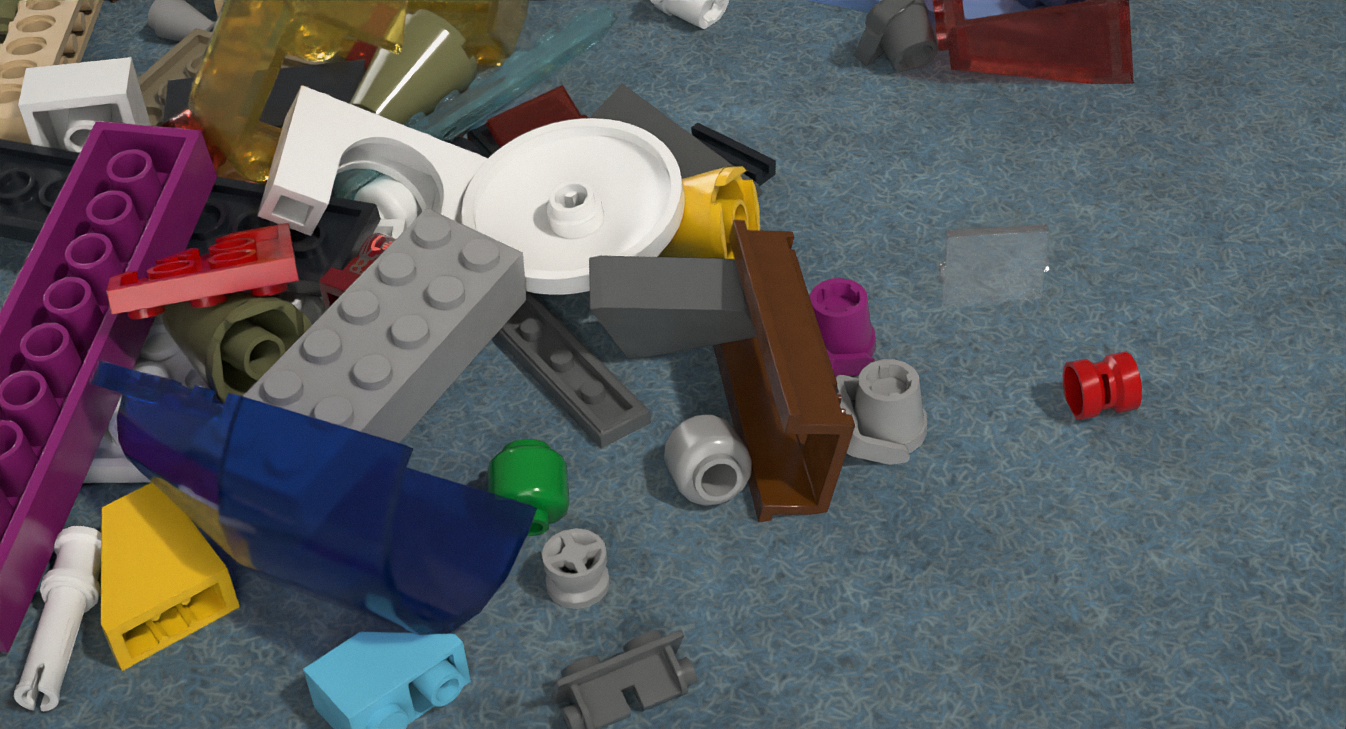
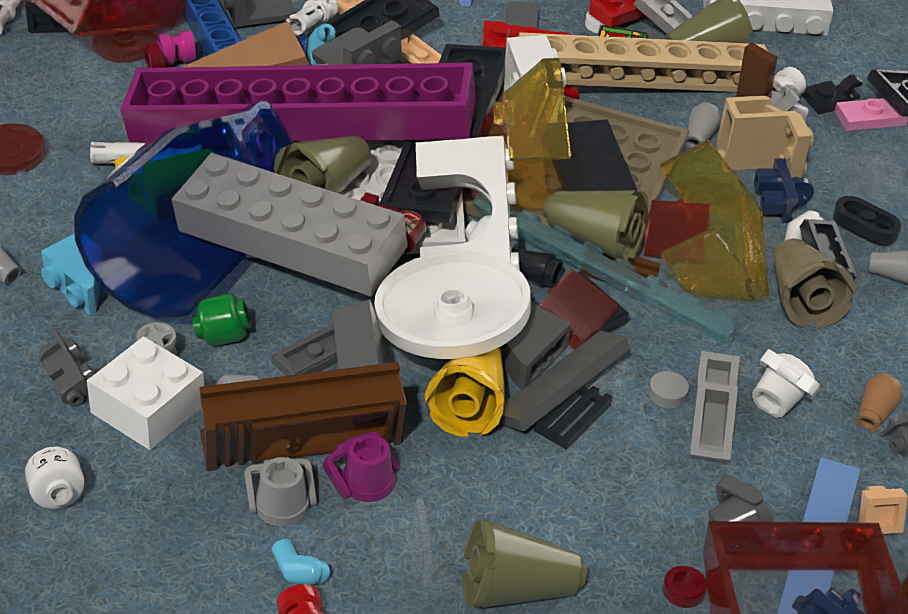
camera: 80 degrees right, 0 degrees up
(237, 262) = (349, 139): red plate -> none
(679, 85) = (668, 389): none -> light grey tile
(694, 564) = (145, 392): none -> white brick
(717, 47) = (714, 406): none -> light grey slope
(880, 669) = (51, 475): none -> white head
(990, 93) = (684, 586): none -> dark red tile
(1011, 189) = (517, 567): none -> olive cone
(1011, 403) = (299, 568): none -> medium azure arm

